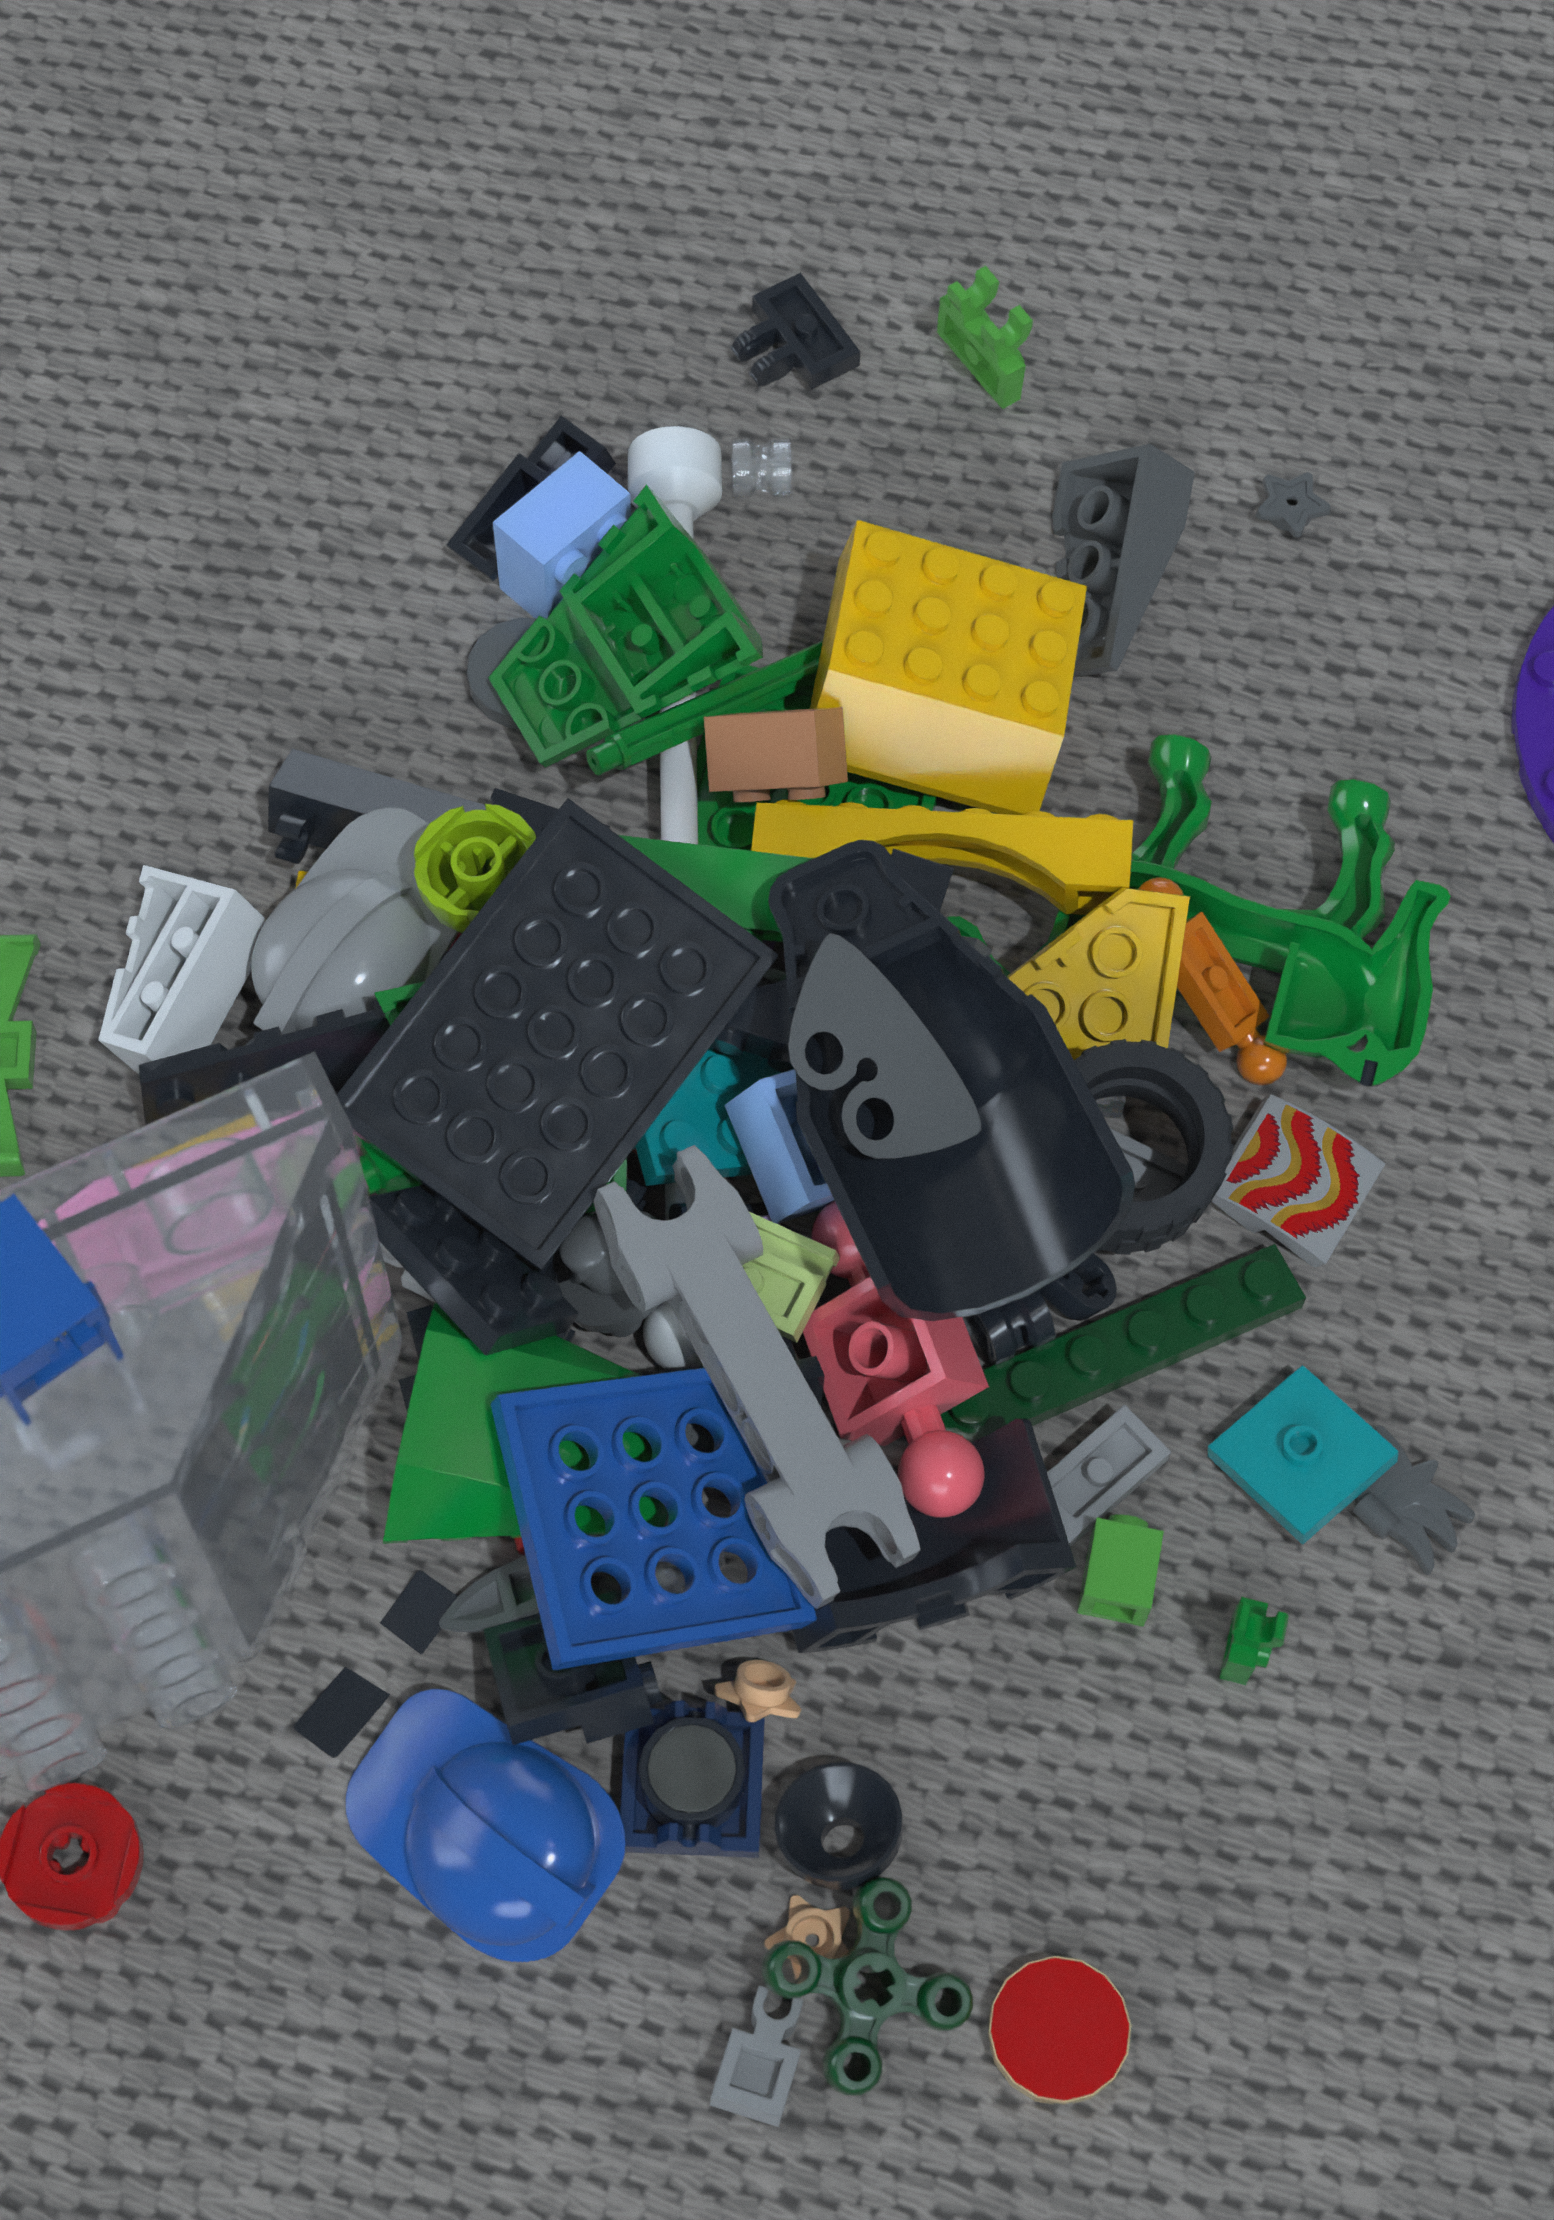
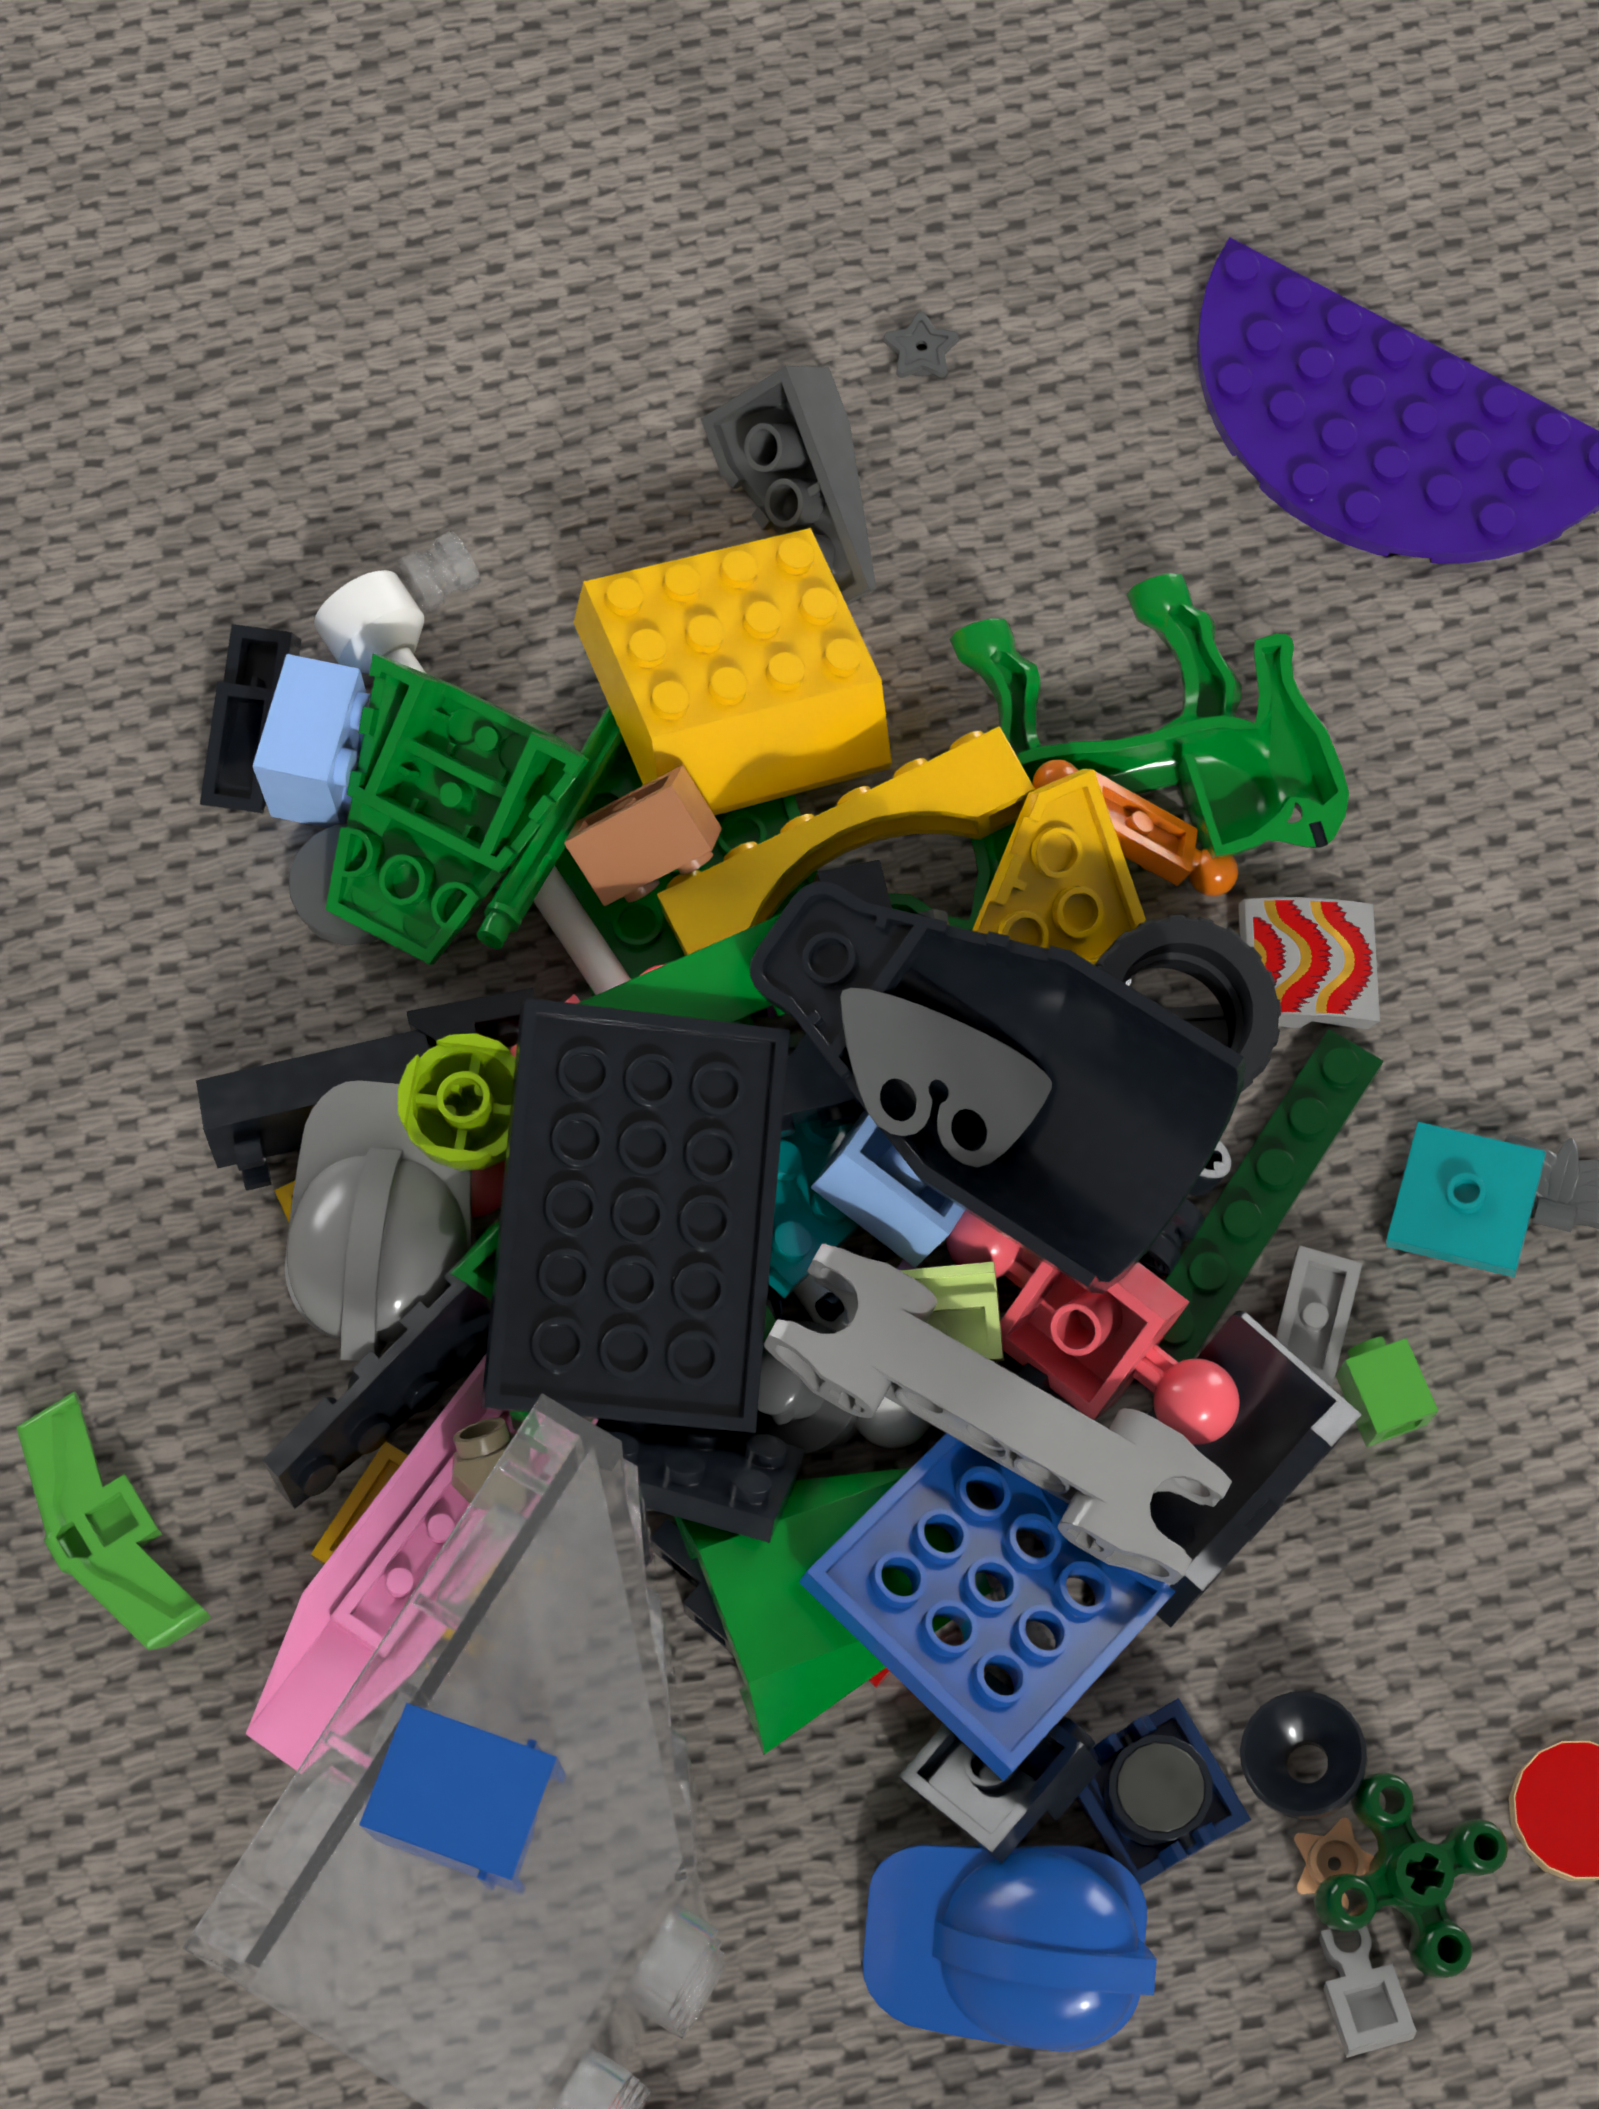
camera: 30 degrees left, 5 degrees up
(182, 967) = (235, 1348): white wedge -> none
(354, 1700) = (819, 1904): black sticker -> none
(493, 1600) = (890, 1738): dark grey plate -> none
(760, 1690) = (1160, 1680): light nougat plate -> none
(804, 332) = (391, 419): black hinge -> none
(982, 347) = (571, 351): bright green plate -> none
(1251, 1639) = (1528, 1386): green plate -> none

